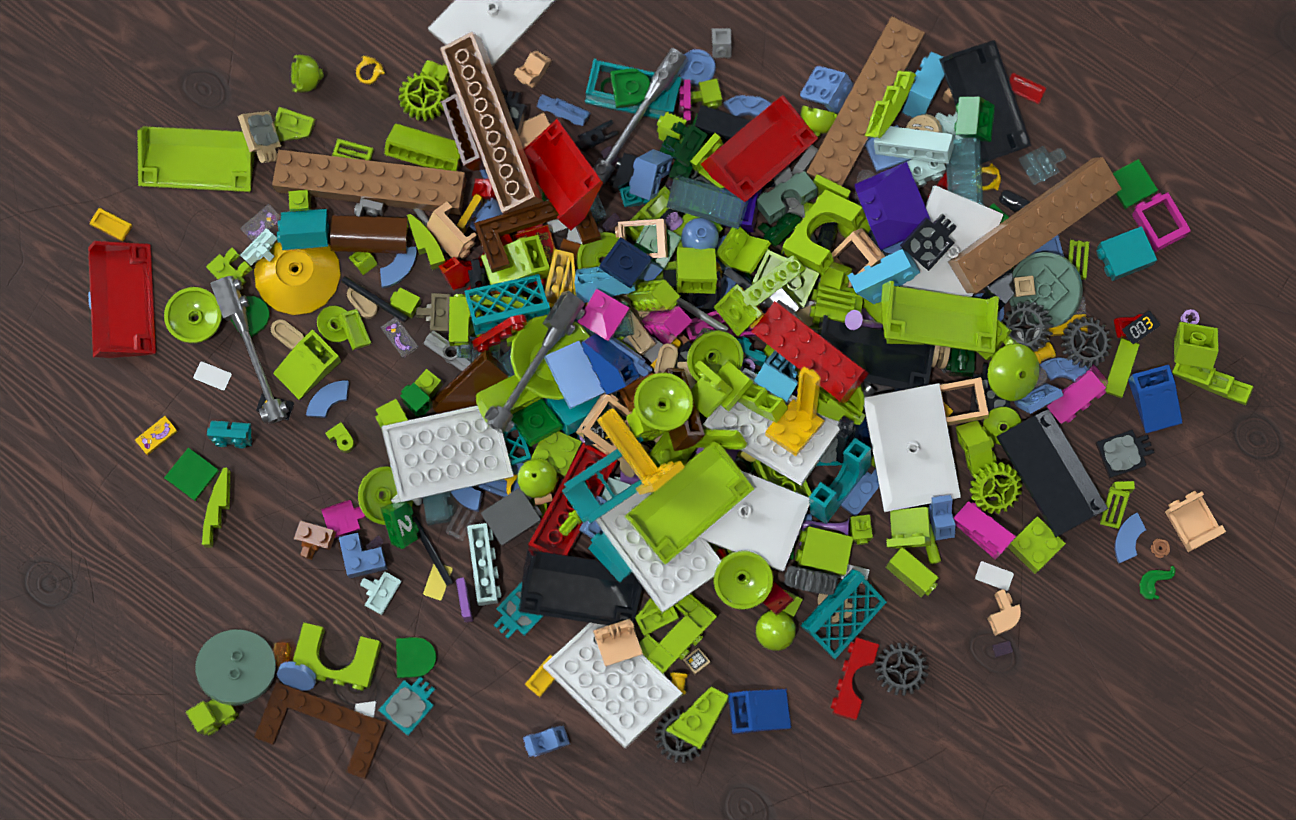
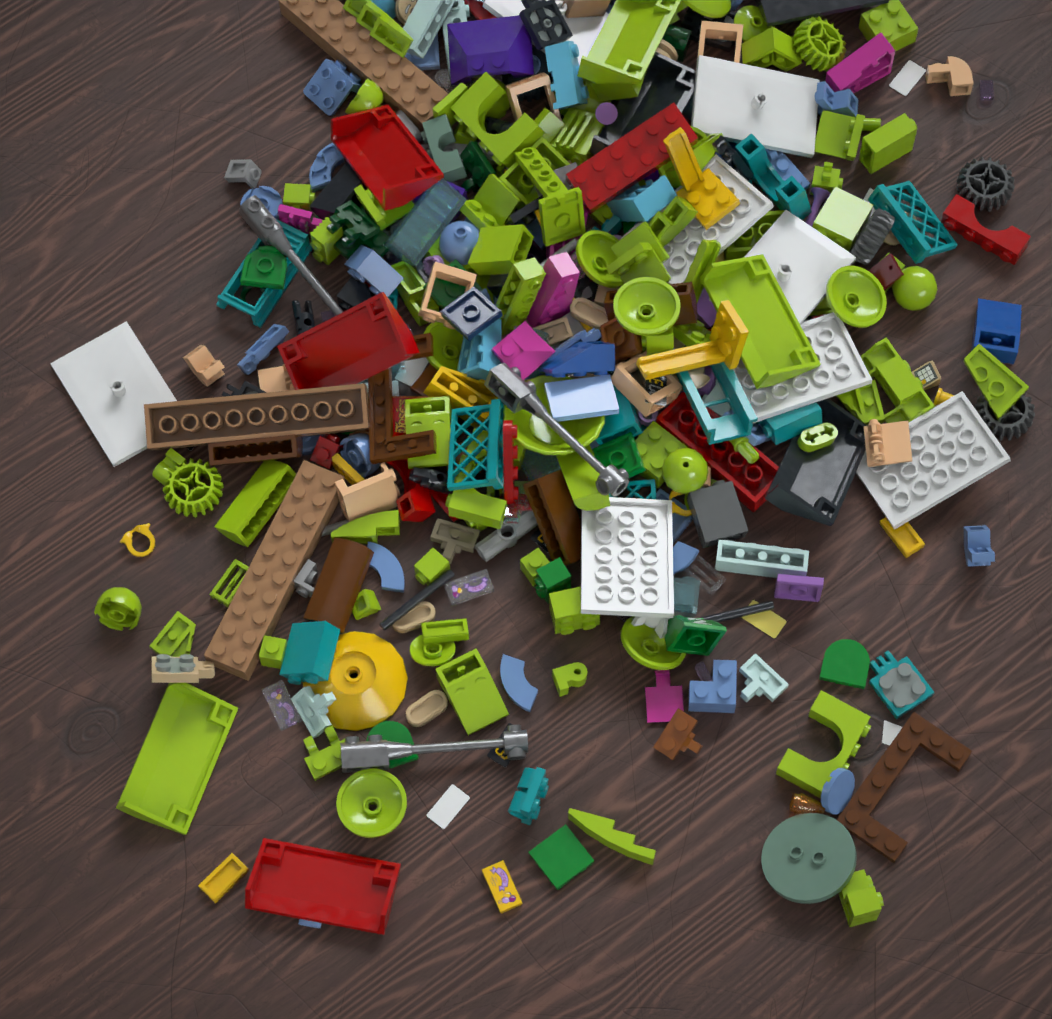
camera: 70 degrees left, 10 degrees down
(513, 618) = (823, 541): teal piece -> none
(603, 584) = (815, 433): none -> lime beam

